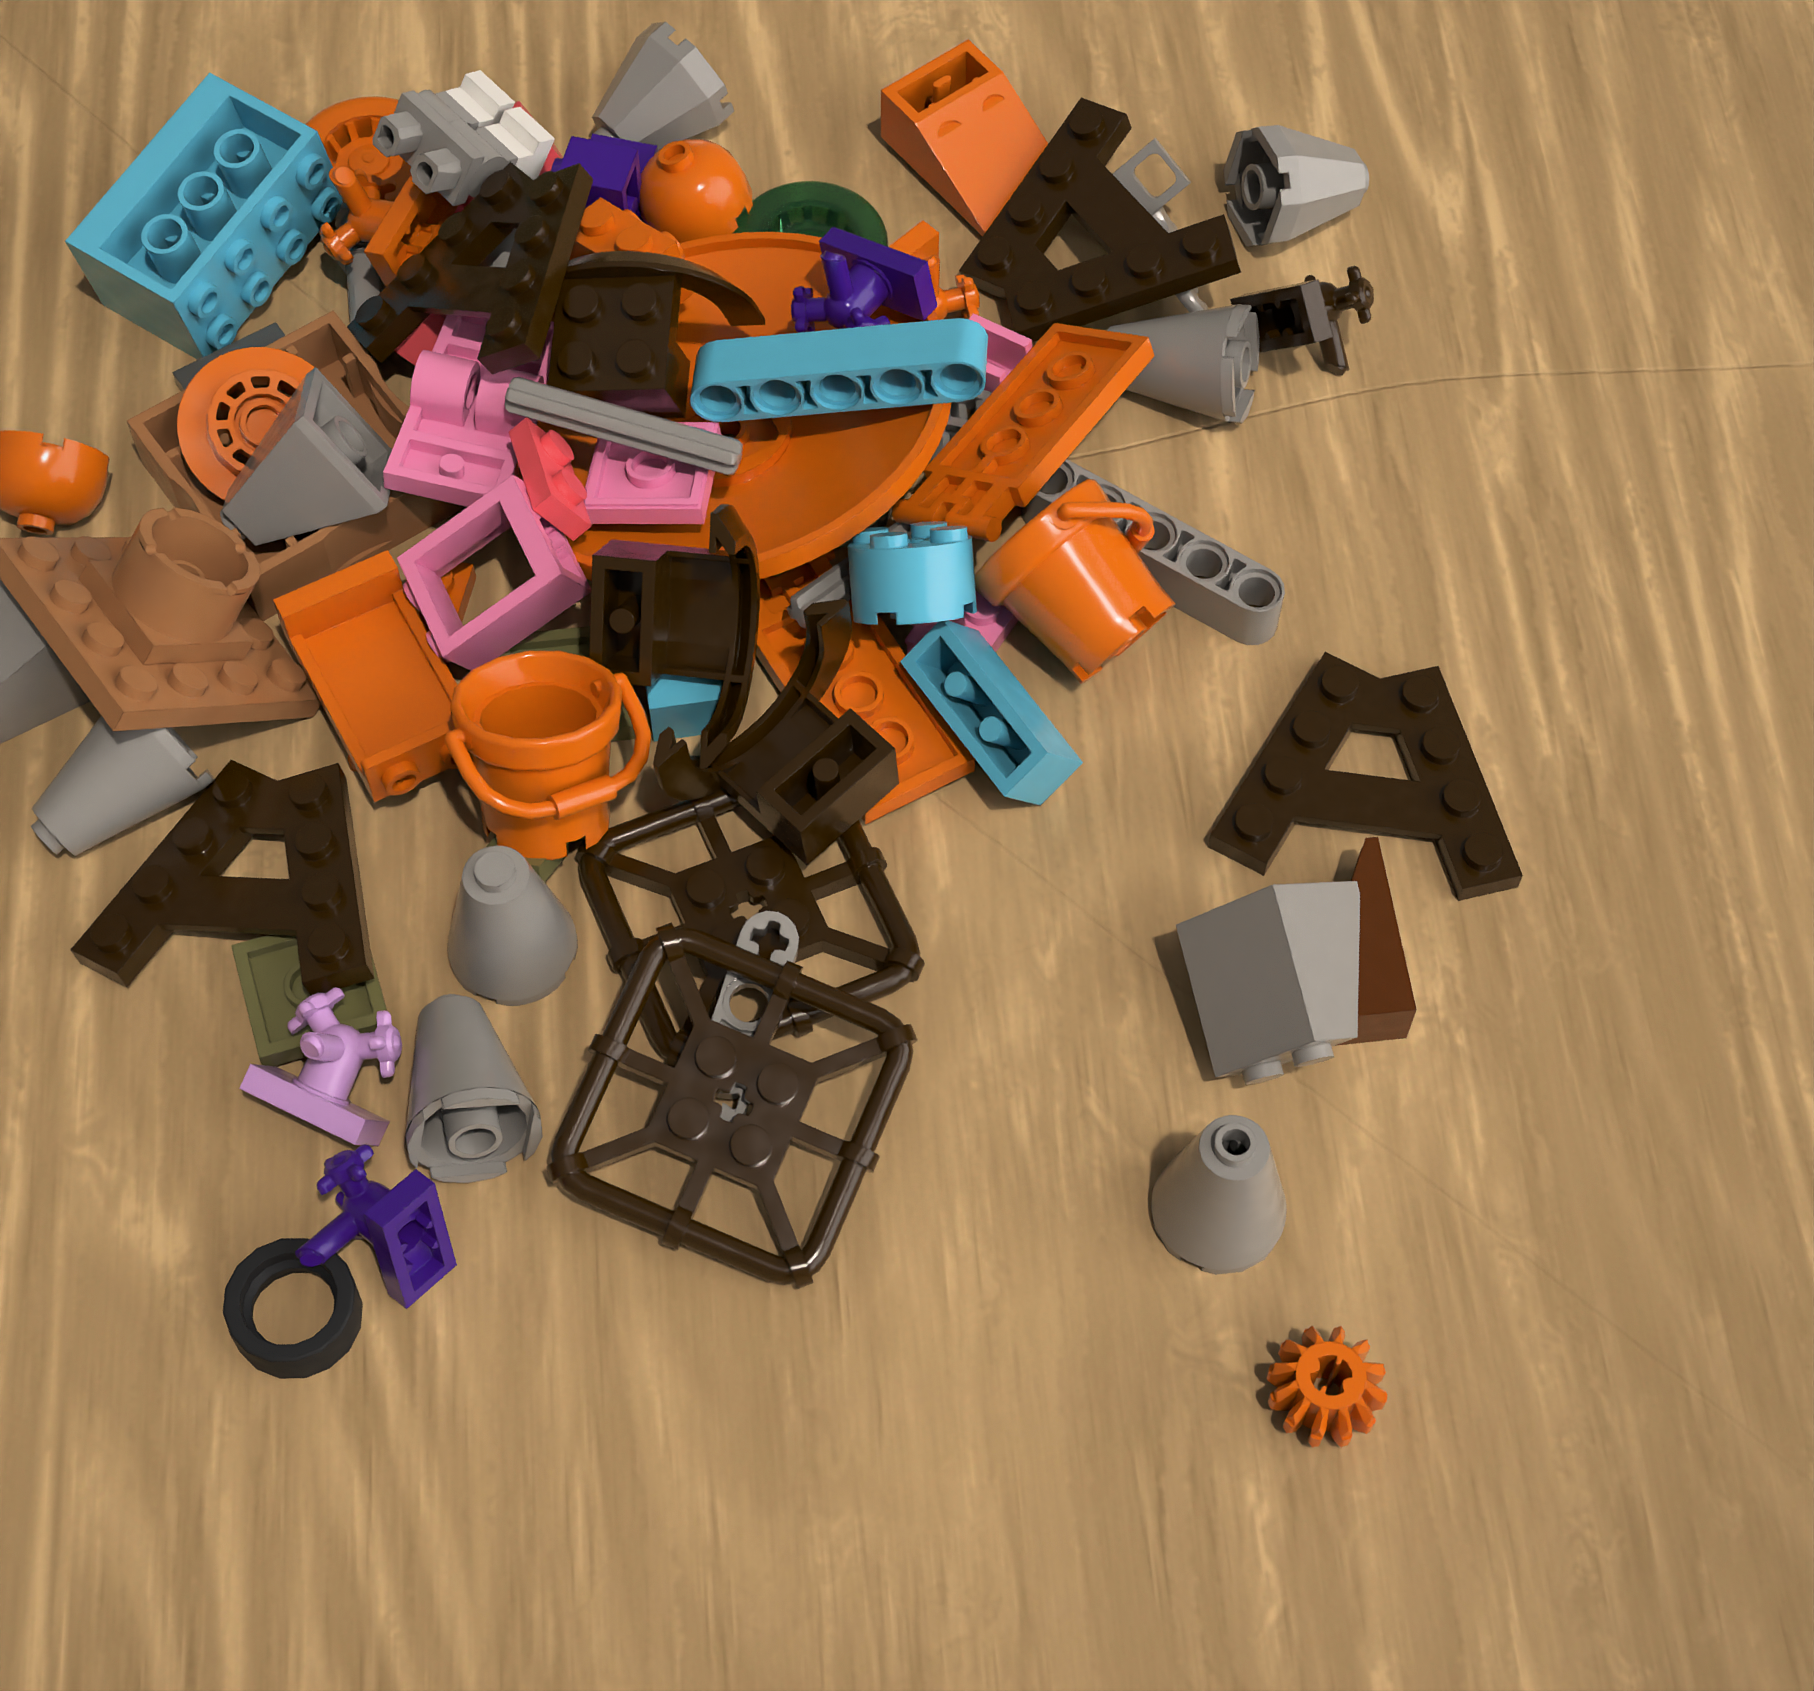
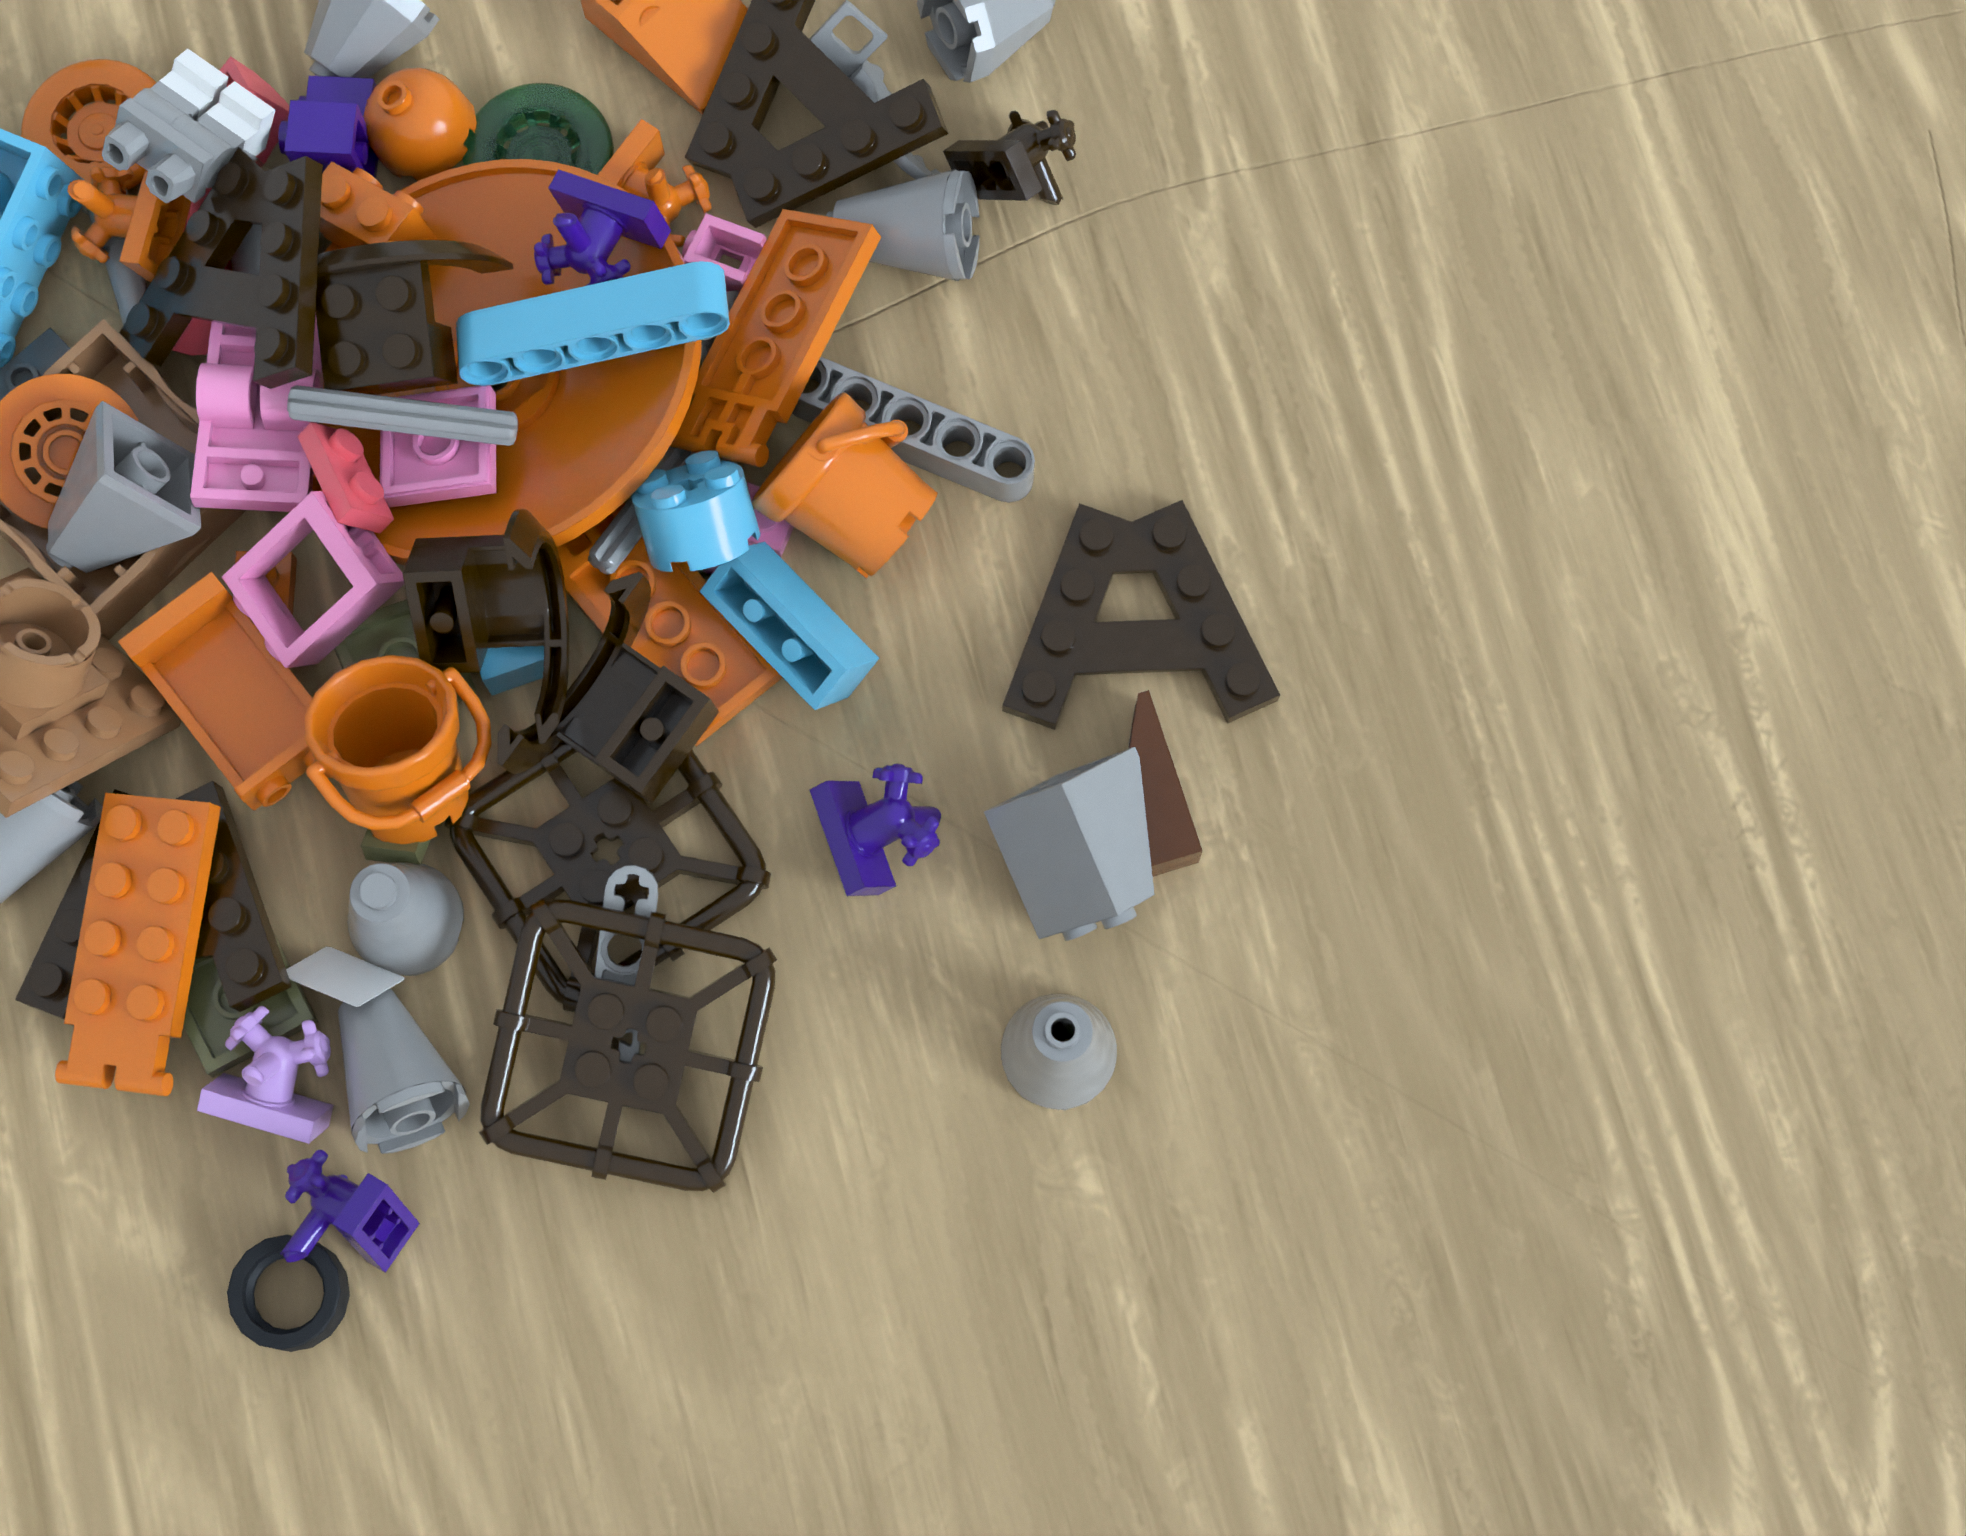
camera: 10 degrees left, 15 degrees up
(218, 904) = (138, 941): none -> orange hinge
(432, 981) = (343, 976): none -> white sticker
(1033, 930) = (861, 830): none -> dark purple piece
(1340, 1365) = (1188, 1208): orange gear -> none

